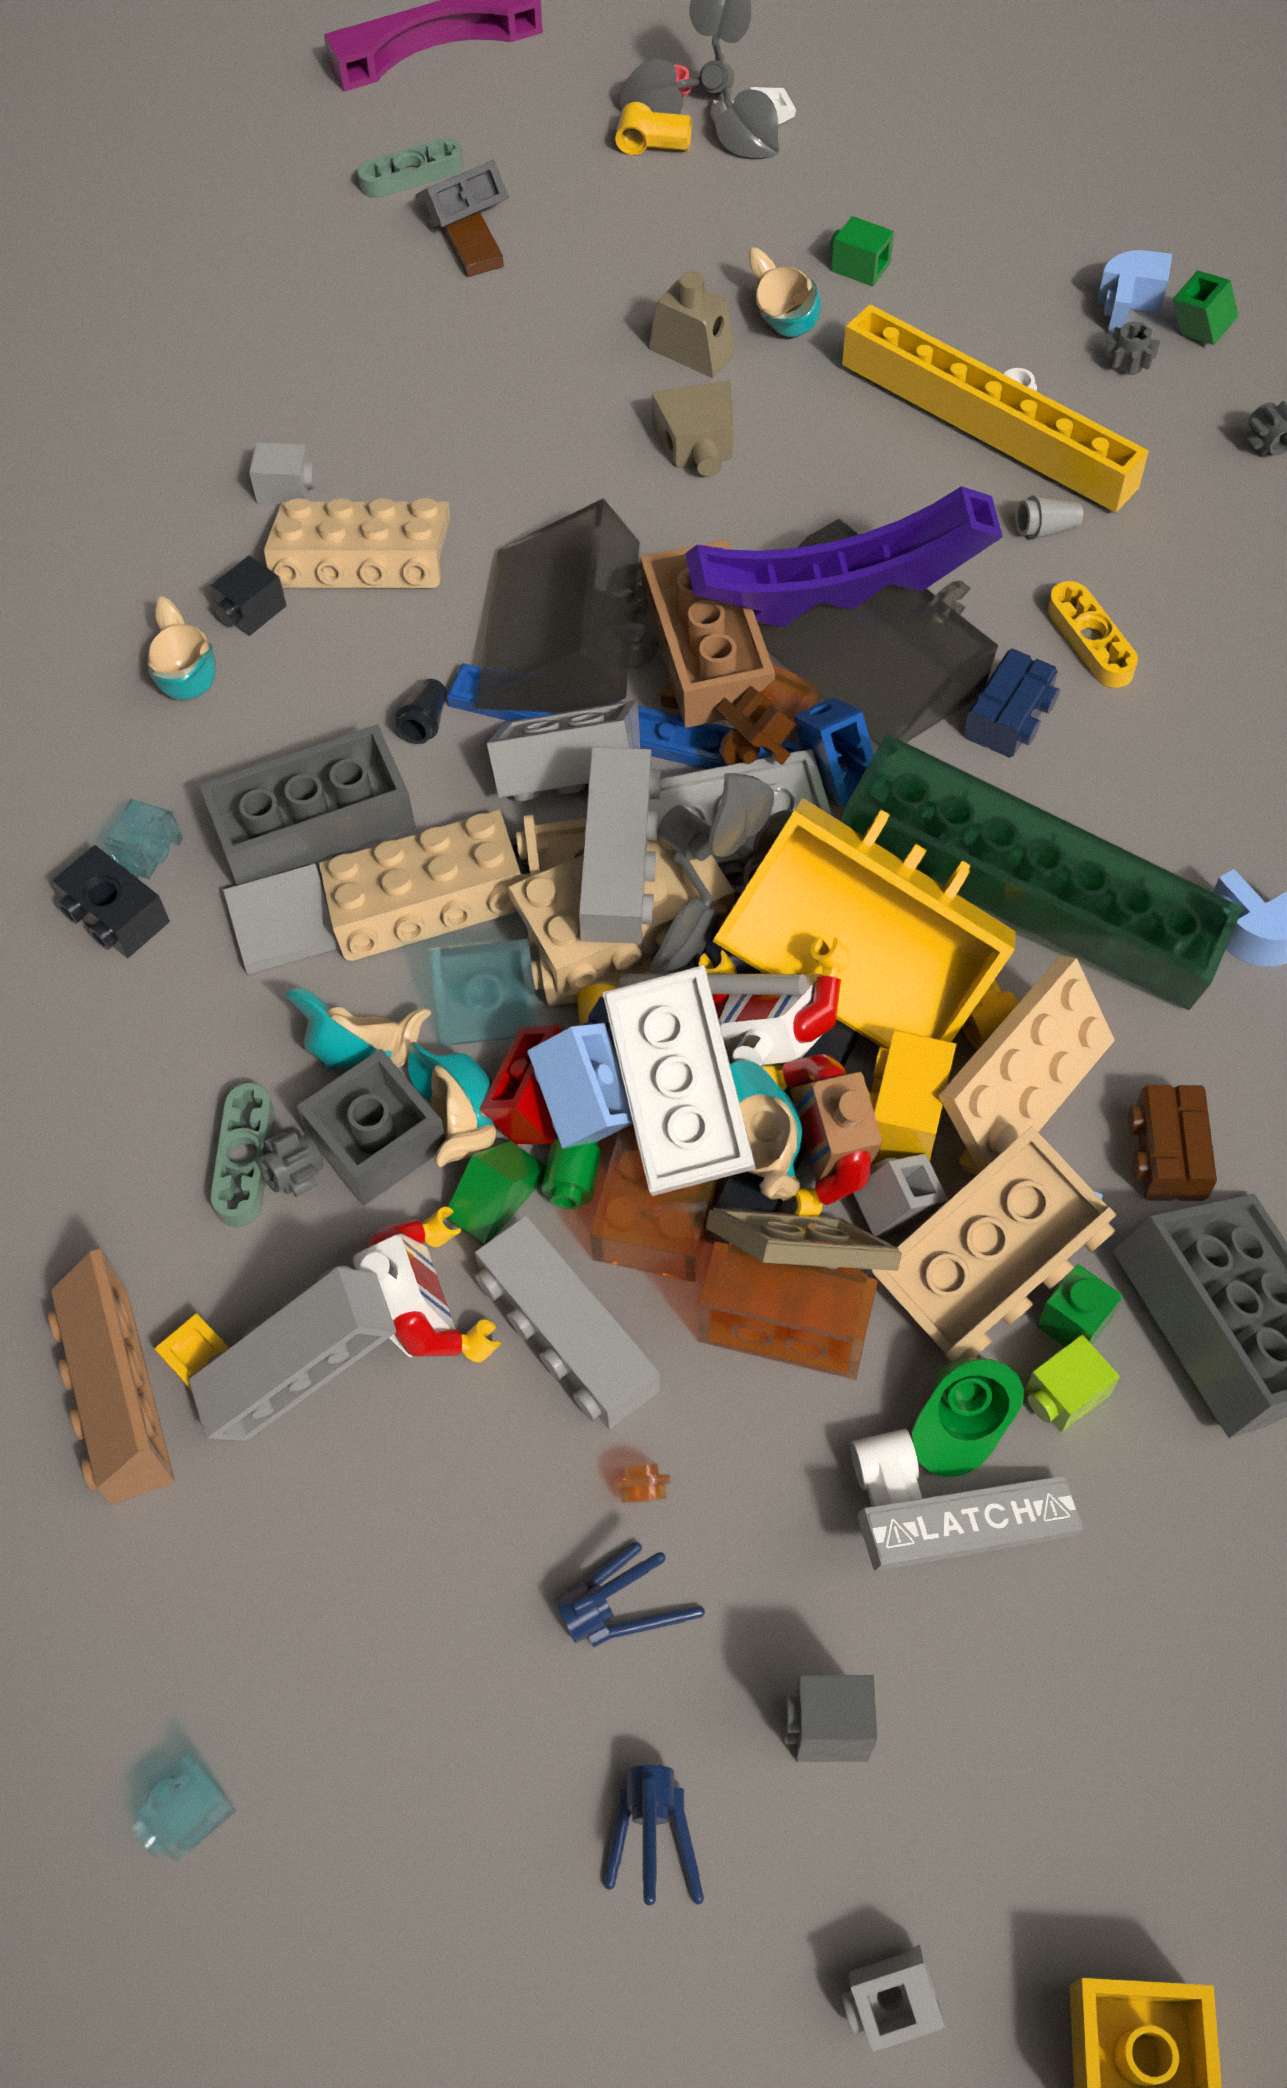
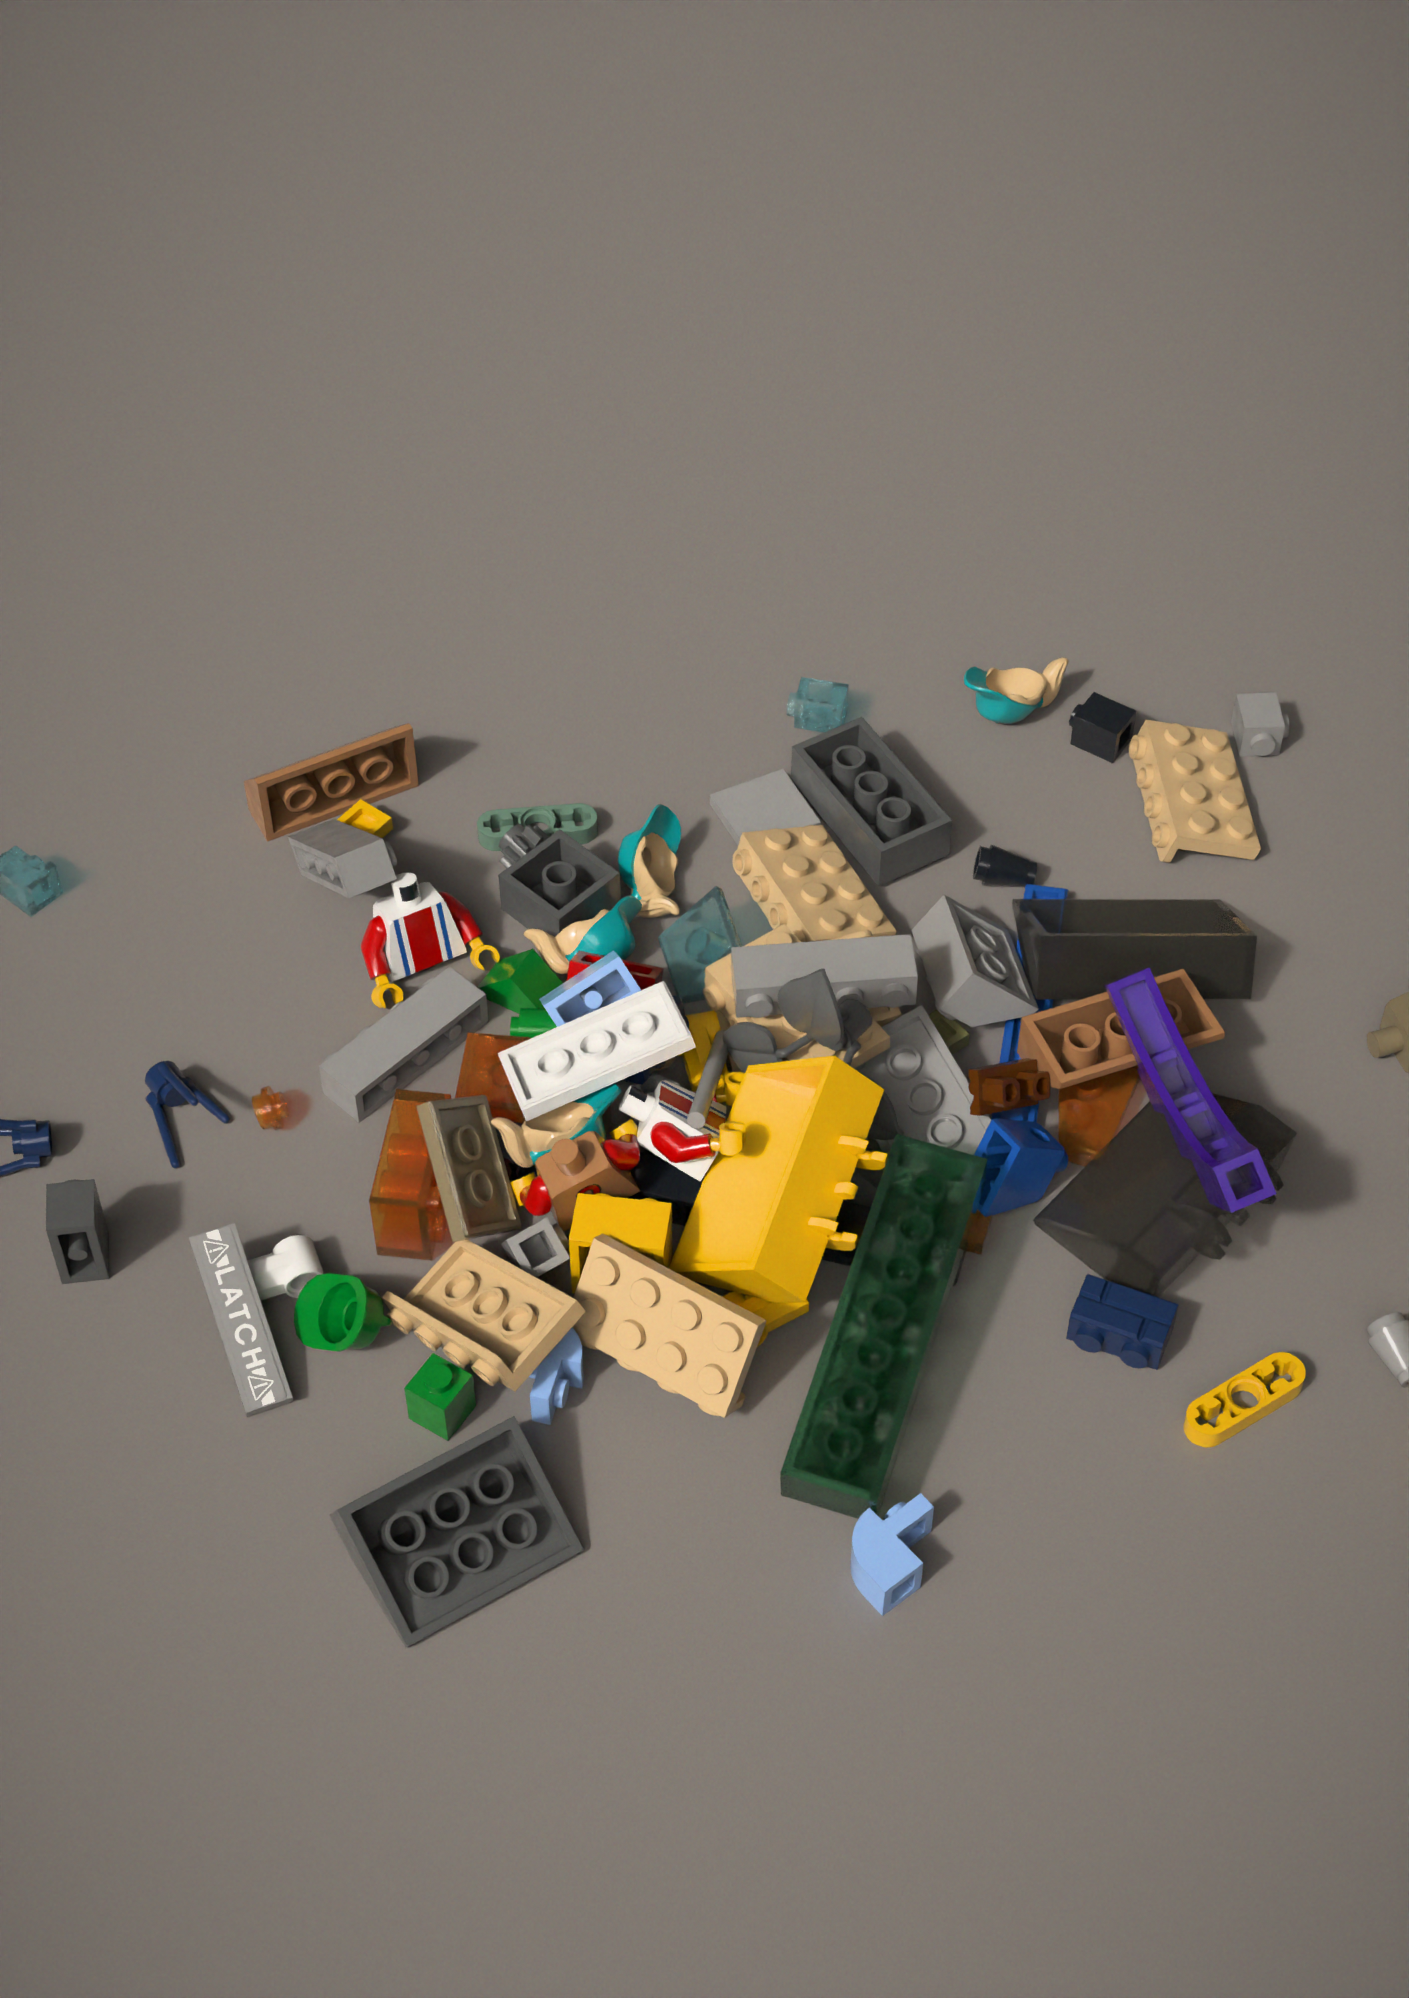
camera: 80 degrees right, 10 degrees down
(110, 902) = (754, 700): black brick -> none
(1070, 1384) = (372, 1395): lime brick -> none
(1173, 1143) = (622, 1471): reddish brown brick -> none

